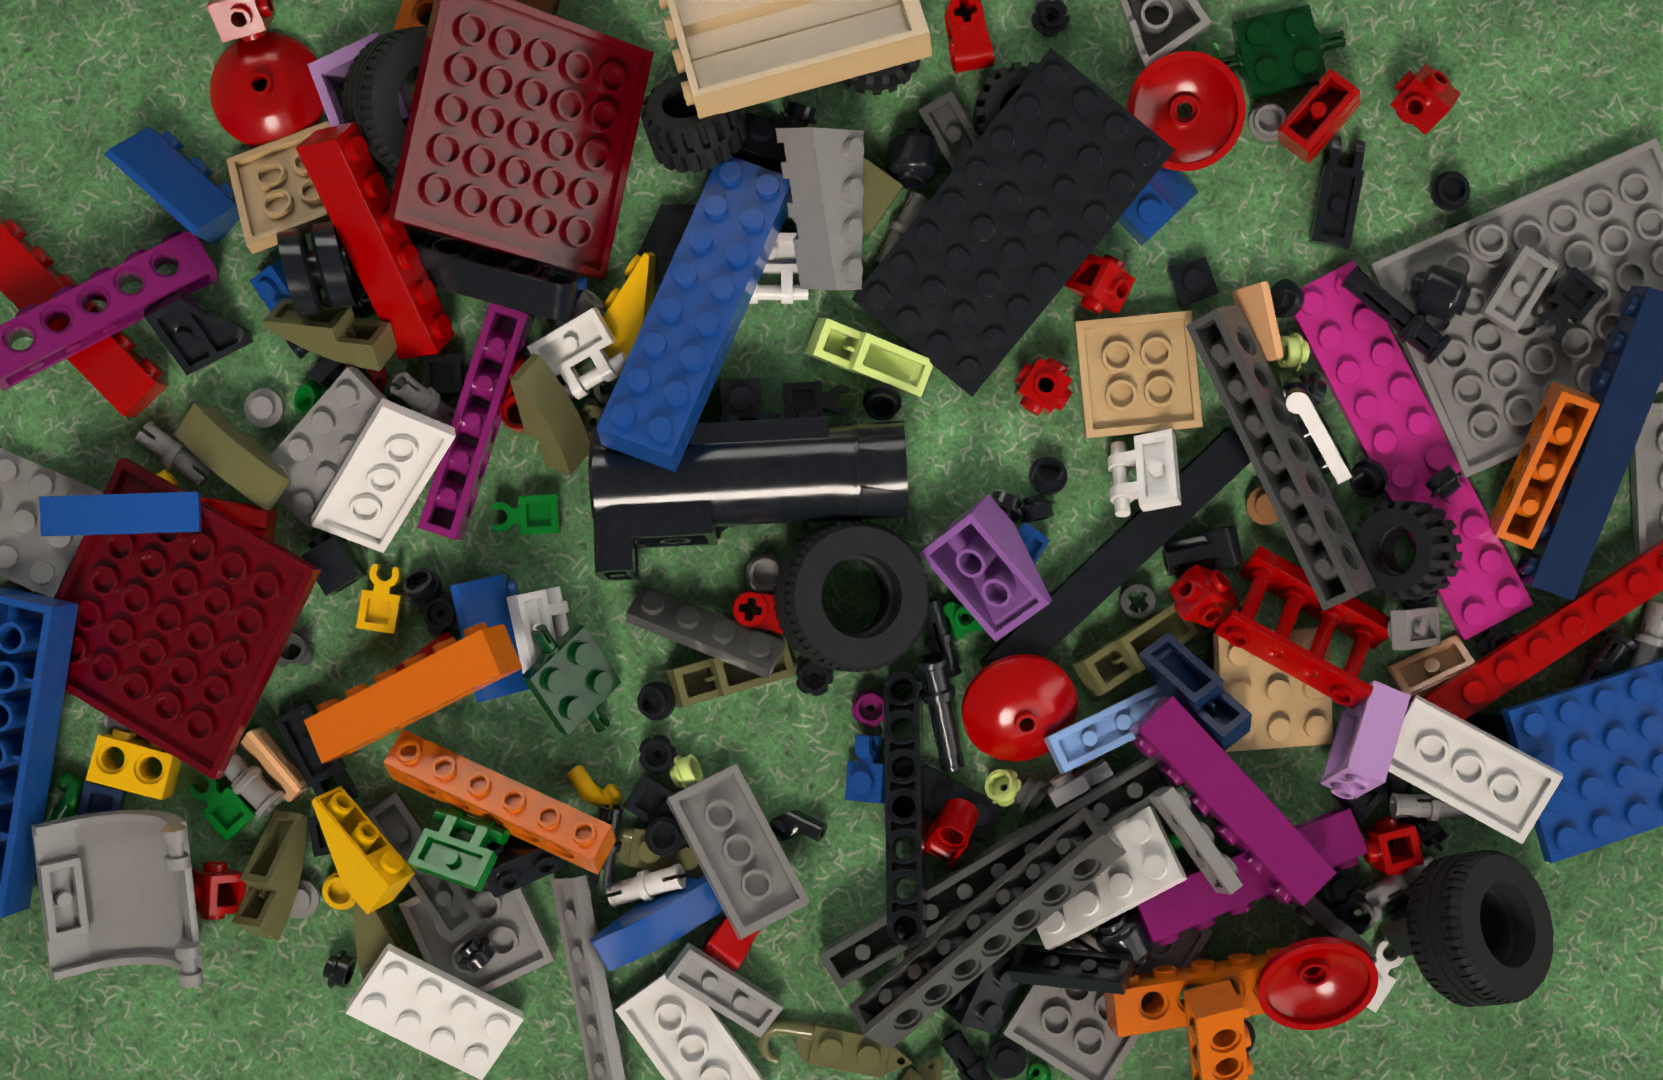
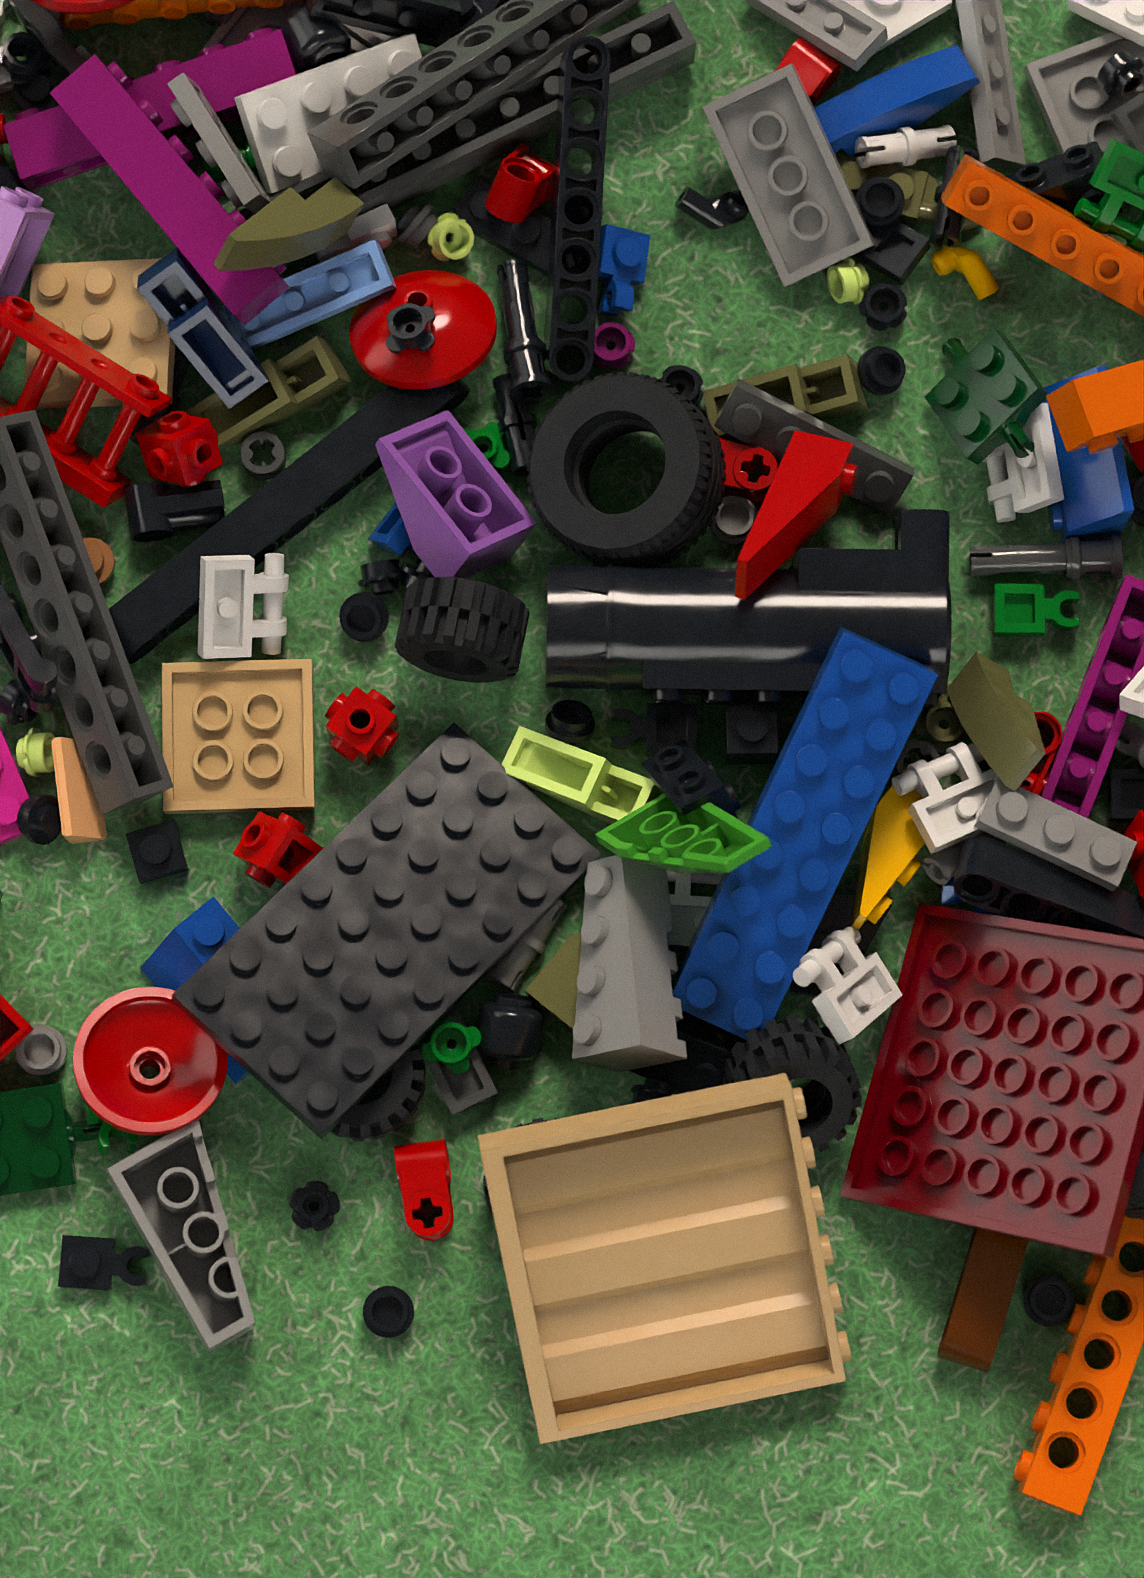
camera: 175 degrees left, 10 degrees down
(499, 559) = (1072, 557): none -> dark grey pin
(500, 325) = (1056, 834): none -> light grey plate
(646, 197) = (850, 999): none -> white plate
(713, 575) = (797, 504): none -> red wedge
(785, 347) = (689, 780): none -> black bracket
(786, 297) = (689, 843): none -> bright green wedge
(953, 130) = (454, 1058): none -> green plate
(971, 462) = (462, 629): none -> black tyre
(1038, 706) = (409, 316): none -> black plate
(1133, 768) = (290, 228): none -> olive slope

